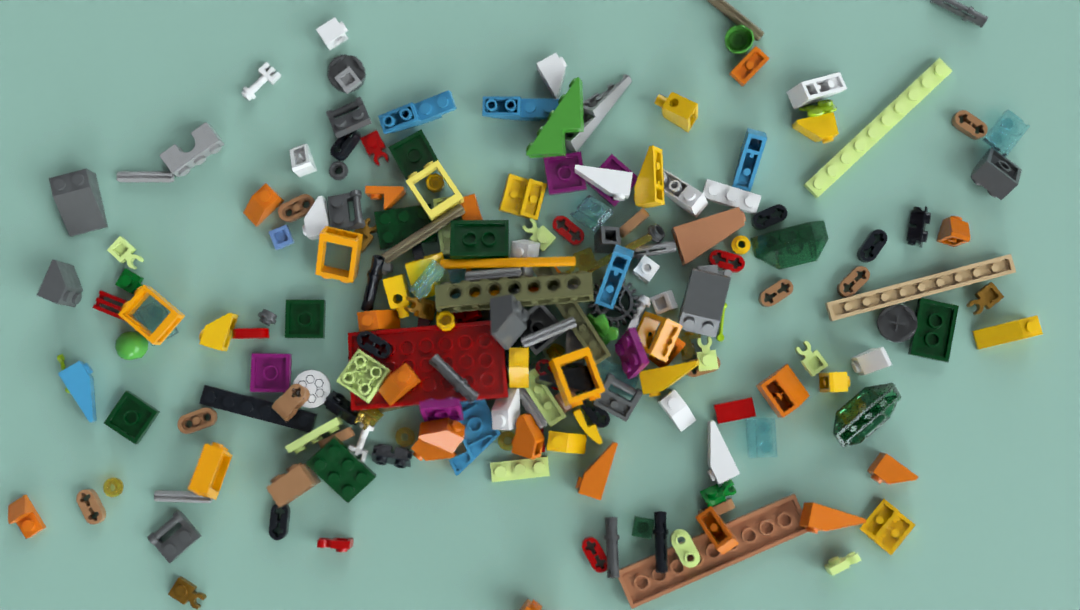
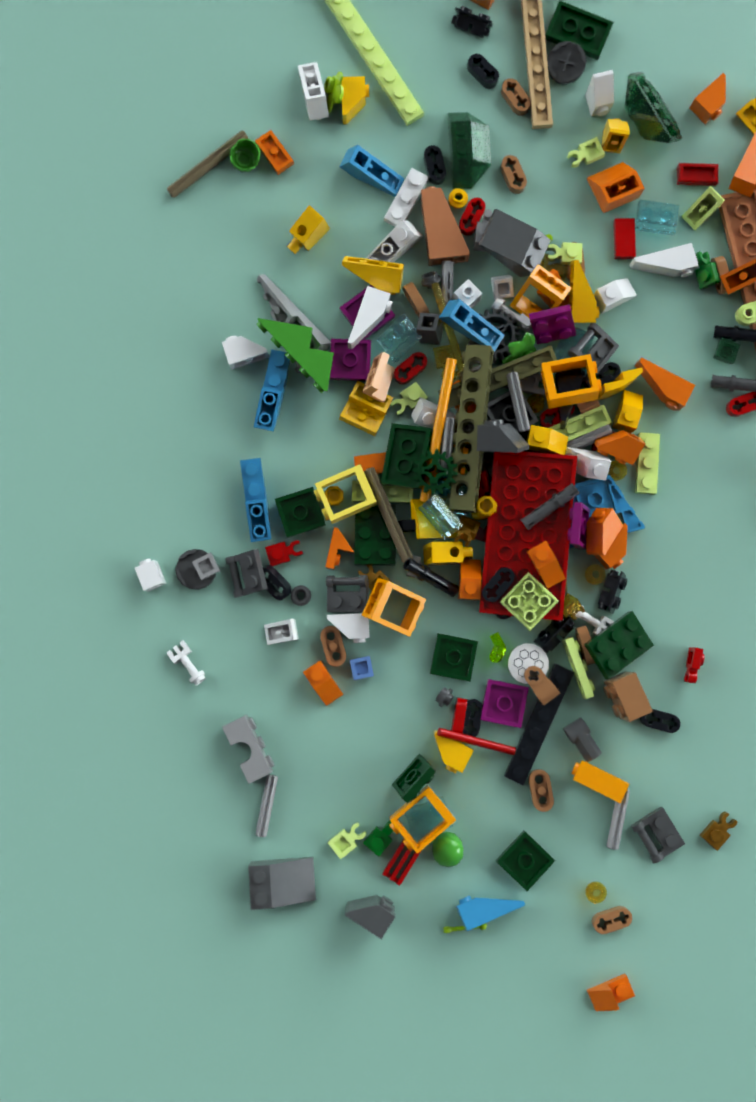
camera: 85 degrees left, 0 degrees up
(186, 301) = (414, 778): none -> dark green plate
(230, 352) = (476, 741): none -> red bar
(248, 351) = (476, 718): none -> black beam
(253, 447) = (580, 736): none -> dark grey piece
(320, 359) = (498, 649): none -> clear neon green arm
(457, 266) = (434, 481): none -> dark green gear
(551, 202) = (379, 378): none -> light nougat panel
(778, 480) = (703, 208): none -> yellowish green slope
(814, 471) = (697, 174): none -> red tile

